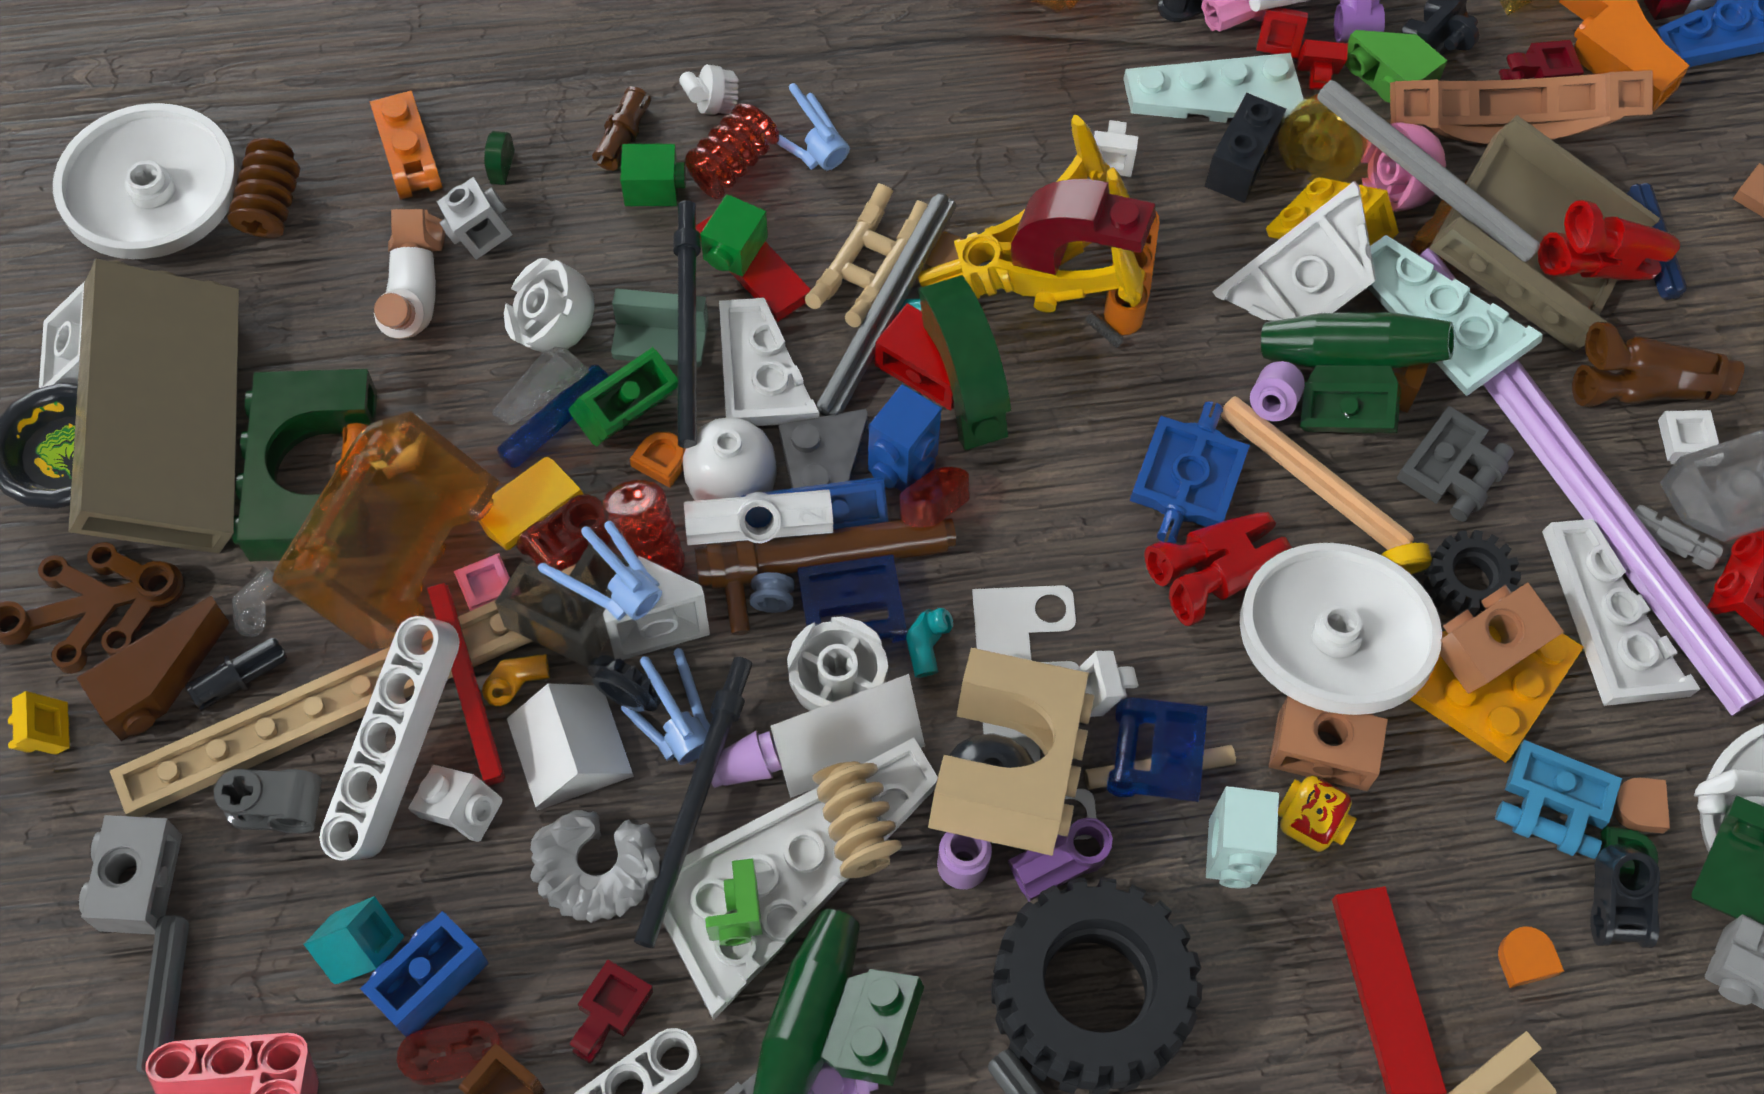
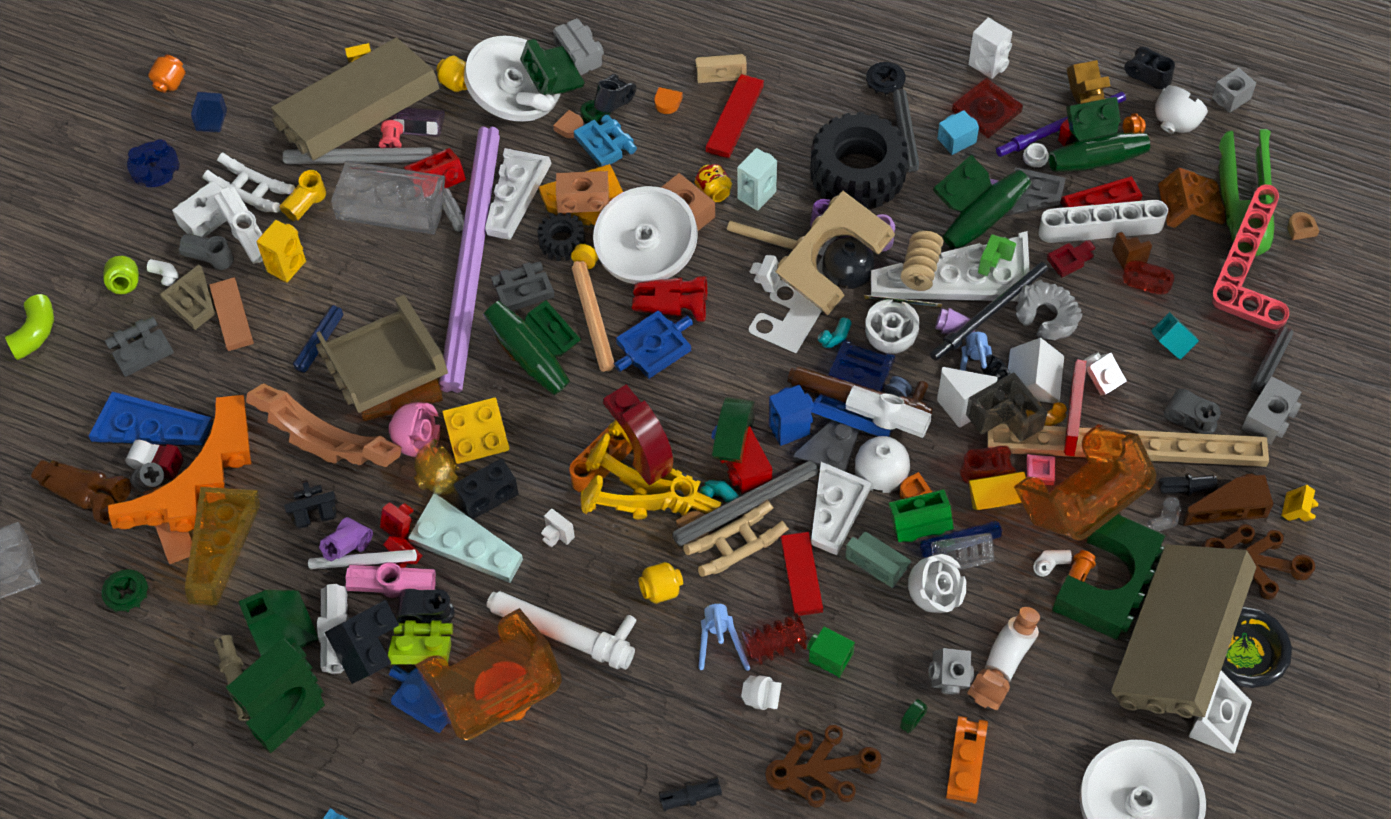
camera: 145 degrees left, 5 degrees down
(264, 188) = (1069, 757): reddish brown piece -> none
(369, 751) = (1123, 390): white beam -> none
(425, 974) = (1148, 299): blue brick -> none
(621, 127) = (829, 698): reddish brown pin -> none
(627, 23) = (818, 767): none -> reddish brown plant
(632, 589) = (980, 376): light blue plant -> none
(646, 522) = (951, 424): clear red piece -> none
(687, 247) = (842, 573): black bar -> none
(734, 235) = (809, 575): green brick -> none
(928, 146) = (660, 582): none -> yellow head
(934, 497) = (790, 380): clear red beam -> none
(948, 45) = (599, 645): none -> white cylinder
(1175, 749) = (758, 228): clear blue plate -> none
(1277, 391) = (581, 353): lavender brick -> none
(1310, 267) = (519, 395): white wing -> none
(1392, 57) = (358, 494): bright green slope -> none
(1428, 171) = (422, 395): light grey axle -> none
(1483, 333) = (469, 343): light aqua wing -> none
(1543, 61) = (275, 454): dark red plate -> none
(1605, 246) = (363, 325): red piece -> none
(1650, 370) = (411, 278): reddish brown piece -> none
(1686, 432) = (406, 237): white tile -> none

